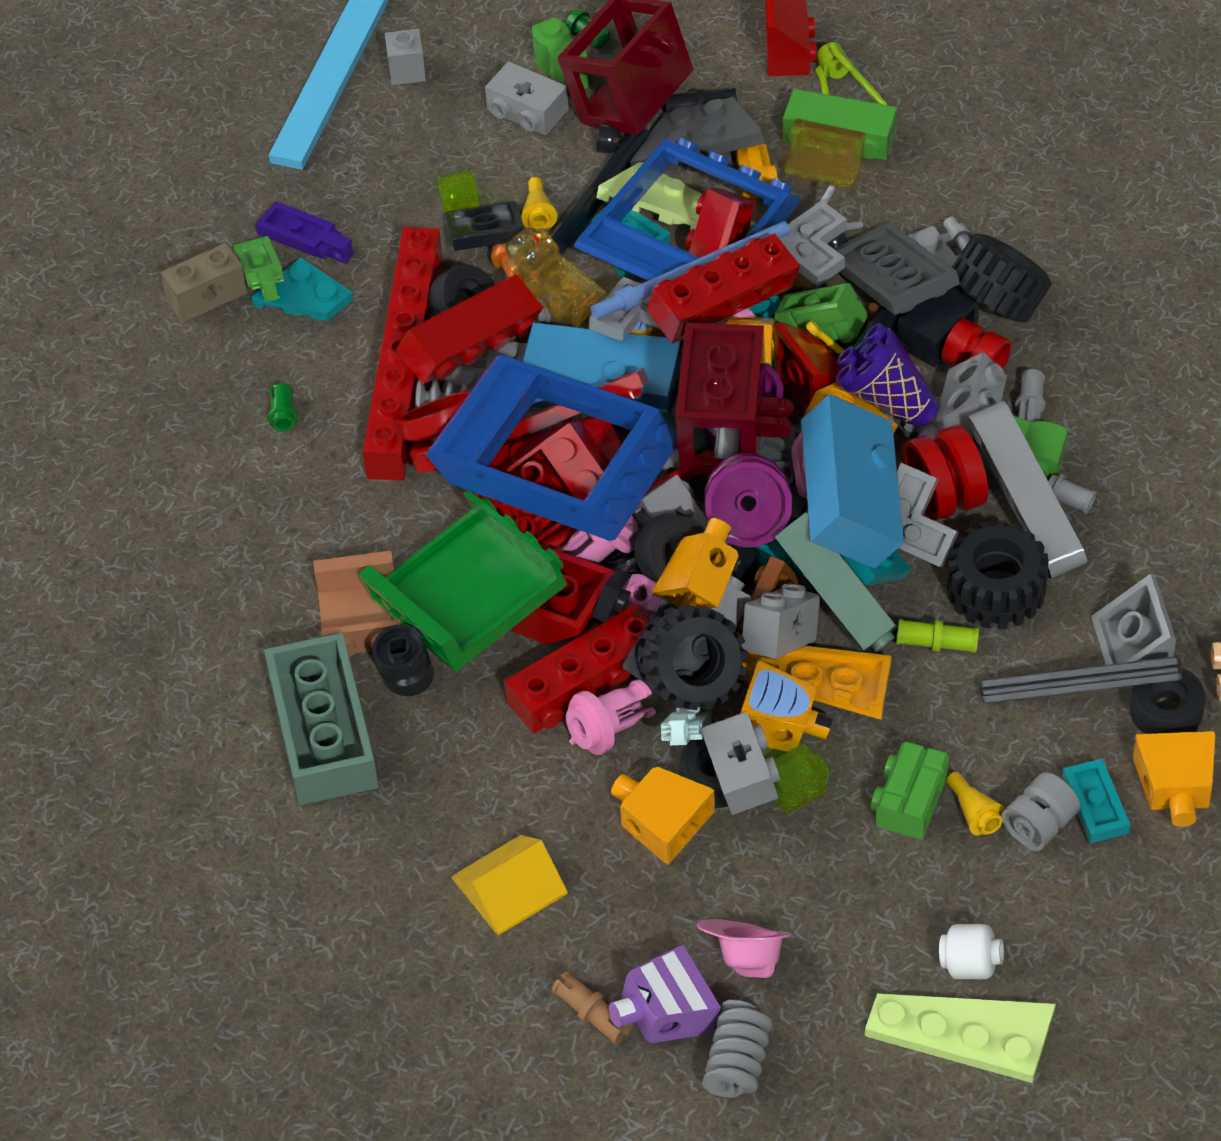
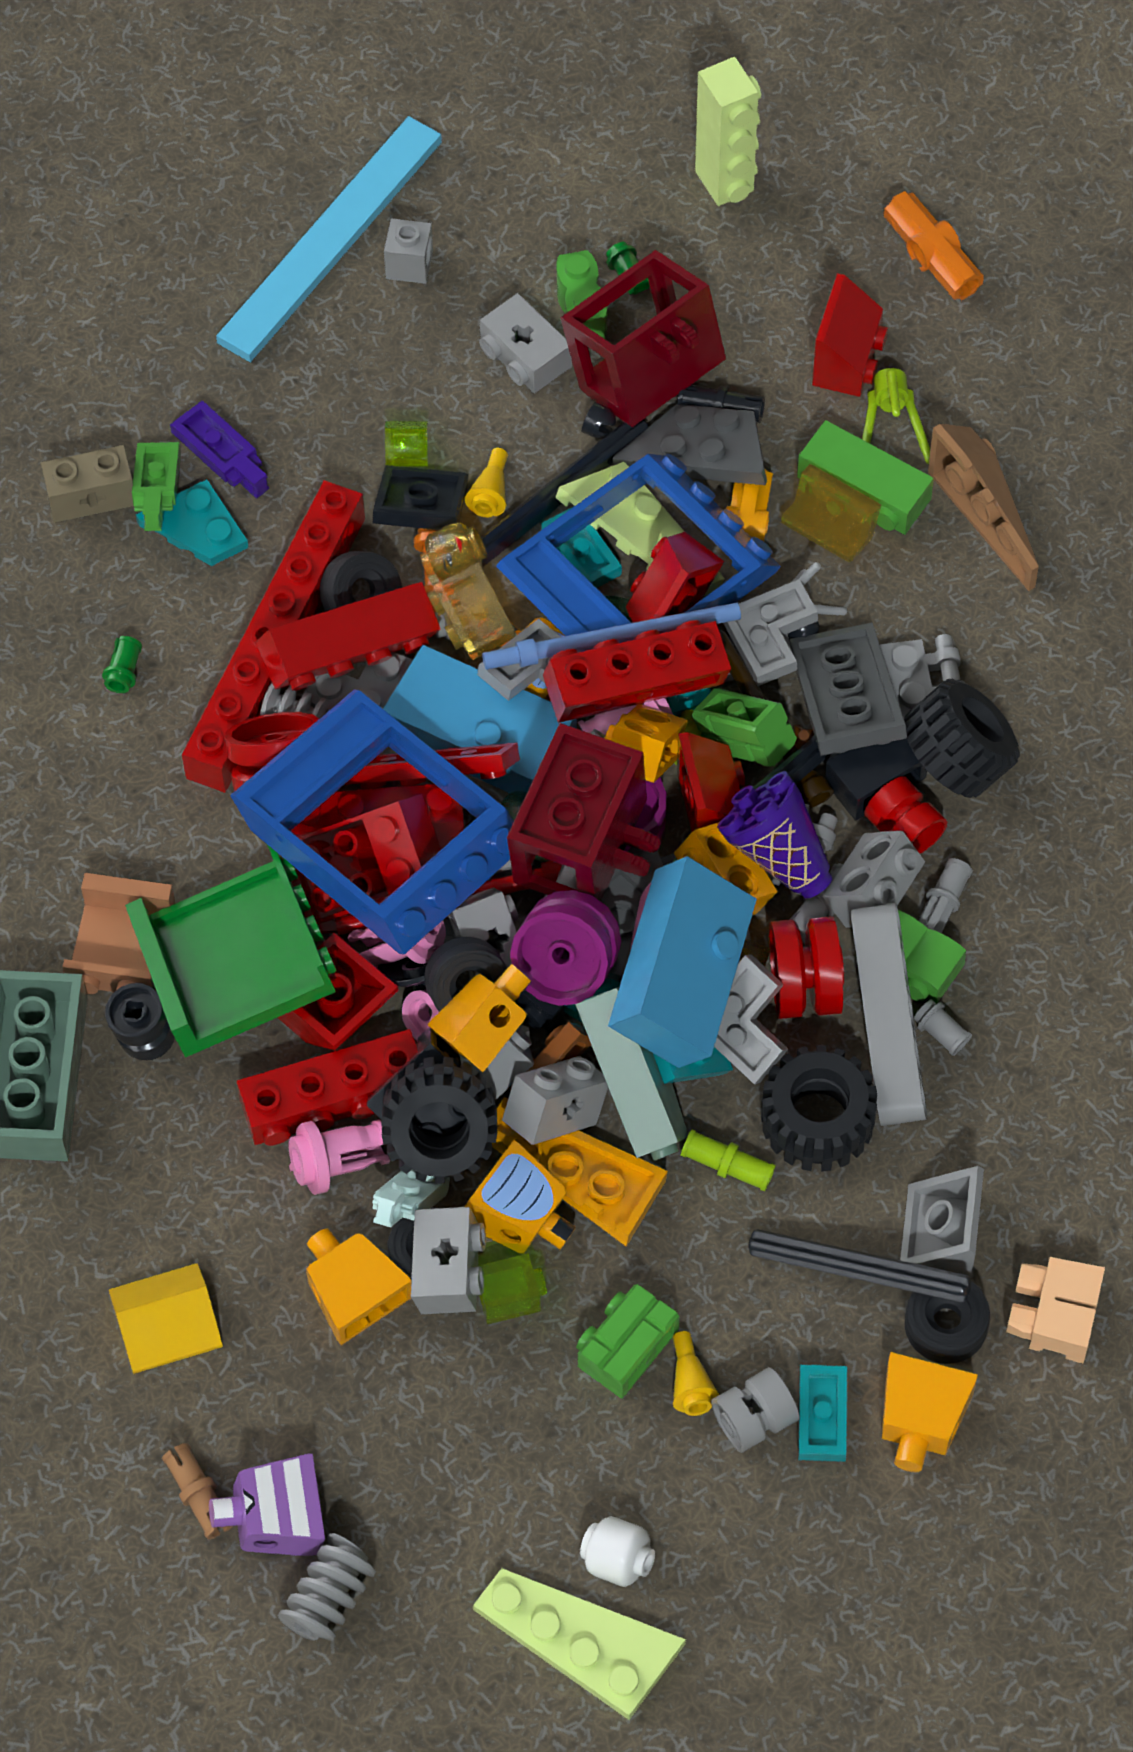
camera: 15 degrees right, 10 degrees up
(613, 596) = (384, 1016): black plate -> none
(746, 947) = (382, 1466): bright pink piece -> none
(816, 331) = (727, 747): yellow hinge -> none
(937, 112) = (975, 483): none -> medium nougat wedge

